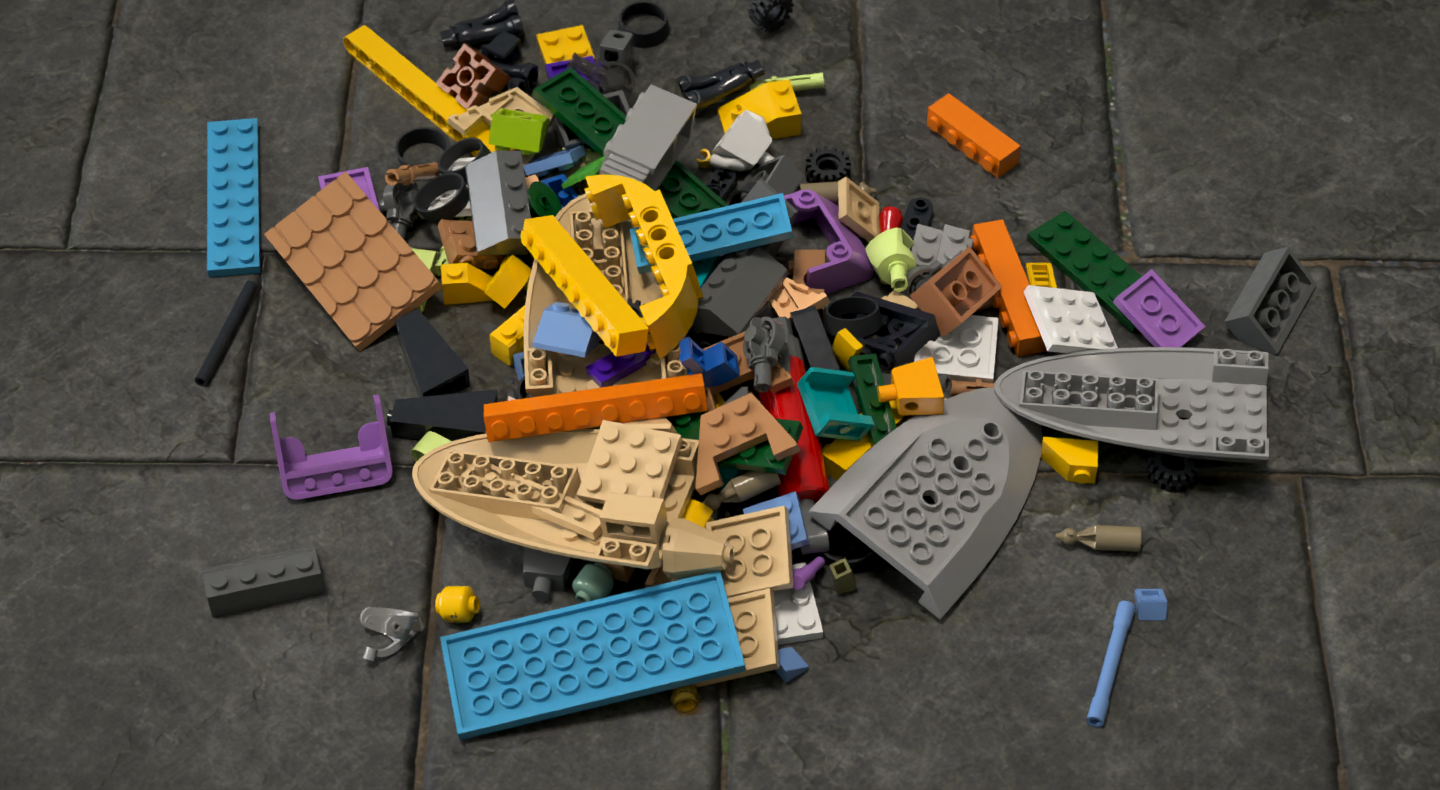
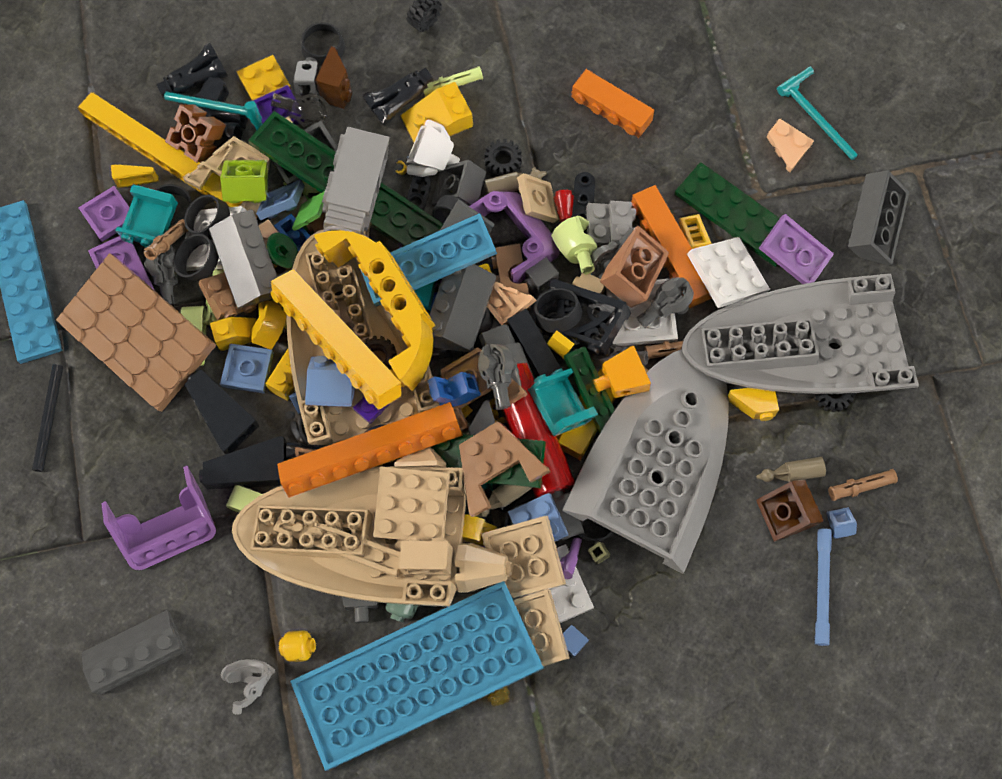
camera: 10 degrees left, 20 degrees up
(350, 146) = (105, 213): none -> medium lavender plate
(382, 114) = (128, 175): none -> yellow slope
(399, 145) = (147, 216): none -> teal panel
(471, 322) = (247, 368): none -> medium blue plate
(541, 66) = (249, 109): none -> teal bar
(647, 57) = (333, 81): none -> reddish brown slope
(843, 285) = (540, 276): none -> dark grey brick
(993, 329) = (668, 300): none -> dark grey pin
(1088, 574) = (789, 510): none -> reddish brown slope
(1179, 211) = (789, 143): none -> light nougat wing
(1185, 567) = (854, 487): none -> medium nougat pin
(1195, 155) = (791, 88): none -> teal bar

